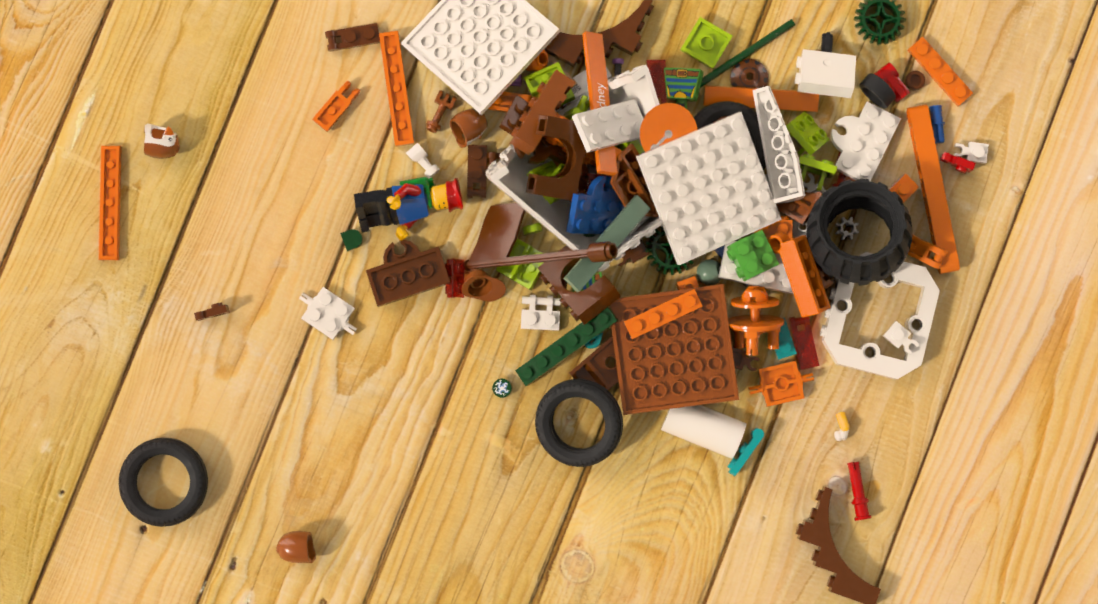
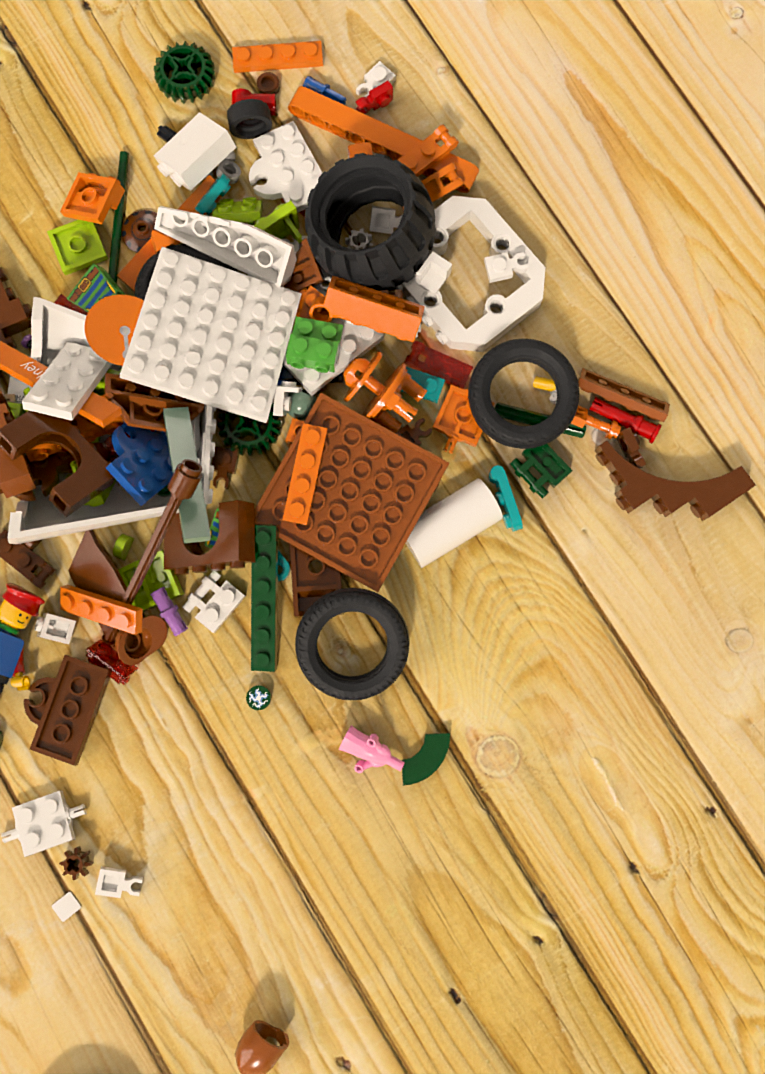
camera: 55 degrees left, 5 degrees down
(289, 365) = (66, 906): none -> white sticker
(323, 357) = (70, 860): none -> reddish brown gear
(325, 384) = (113, 881): none -> white plate
(449, 226) = (55, 628): none -> white bracket
(483, 248) = (101, 609): none -> orange plate
(513, 290) = (169, 611): none -> medium lavender pin
(521, 480) = (368, 749): none -> bright pink piece
(541, 522) = (427, 759): none -> dark green tile
(700, 262) = (282, 401): none -> white bracket
(744, 30) = (92, 197): none -> orange plate
(747, 99) = (161, 240): none -> orange slope
(789, 461) = (546, 463): none -> dark green plate
(811, 107) = (219, 187): none -> teal plate
(815, 435) = (533, 418): none -> dark green axle
(831, 104) = (229, 168): none -> light grey plate
(836, 460) = (581, 418): none -> orange hinge
(843, 505) = (630, 444): none -> reddish brown plate
(847, 388) = (523, 351): none -> black tyre
(859, 295) = (433, 273): none -> white panel
(873, 478) = (624, 395): none -> dark orange plate
(876, 233) = (384, 220): none -> white plate
(940, 227) = (428, 151): none -> orange plate

